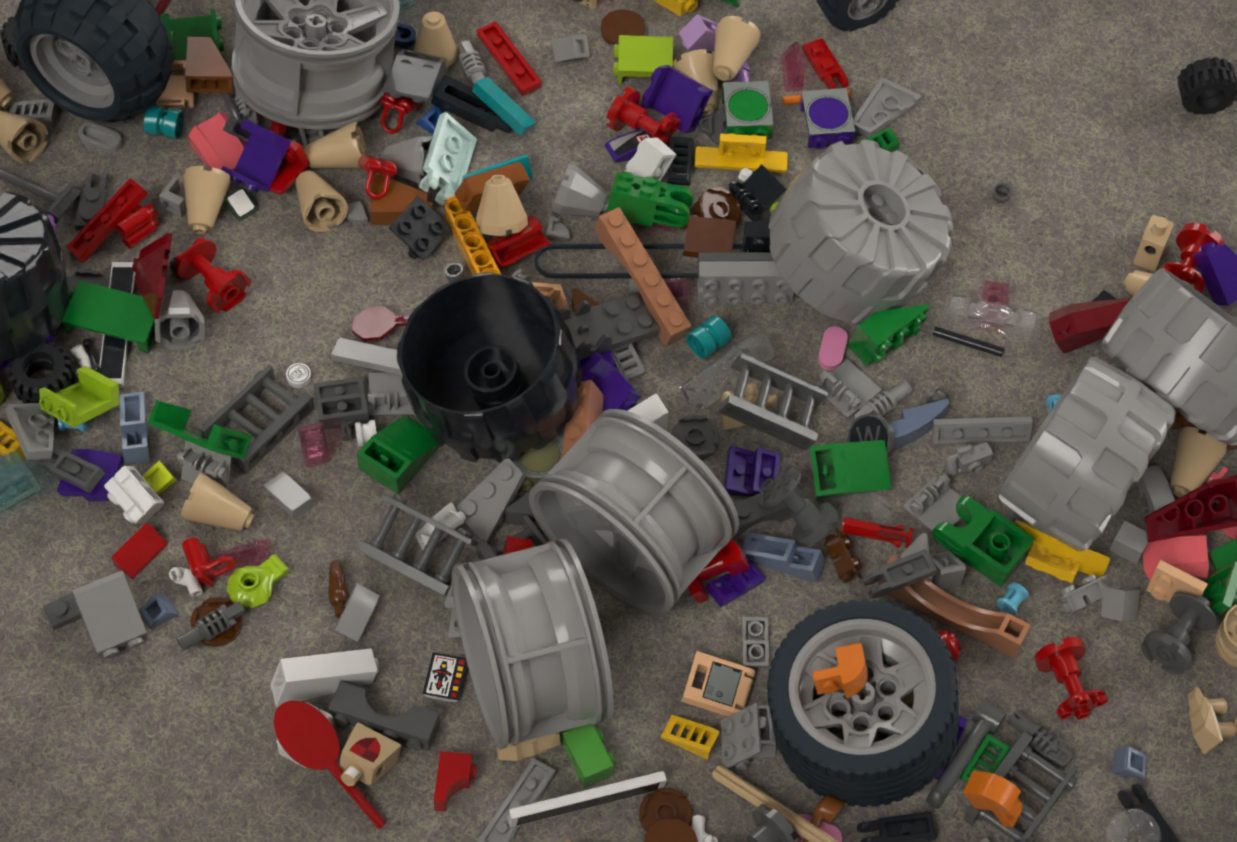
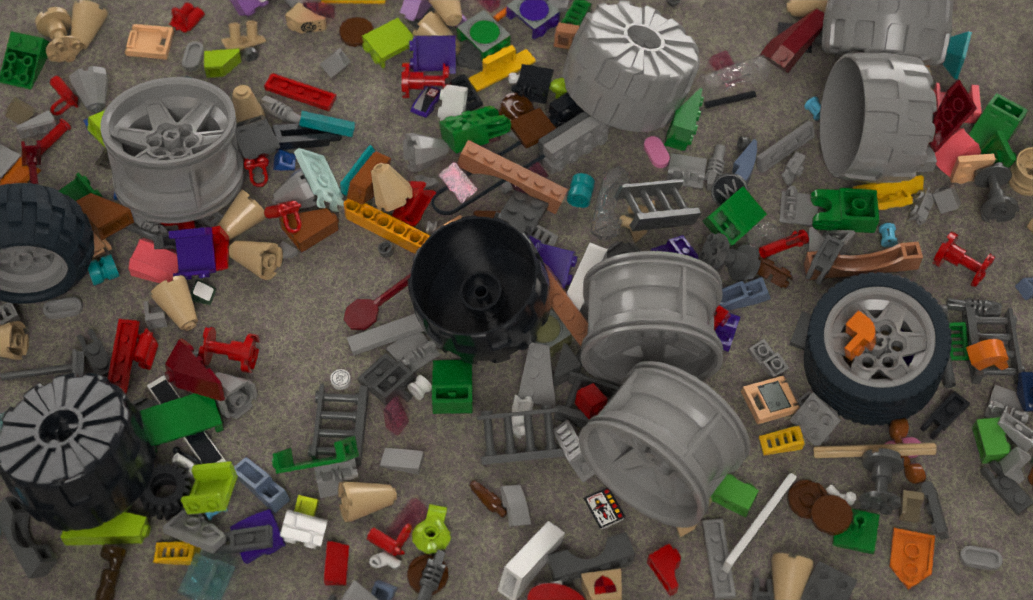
camera: 35 degrees left, 0 degrees up
(420, 228) = (342, 234): black hinge -> none
(579, 247) = (458, 182): none -> clear pink slope

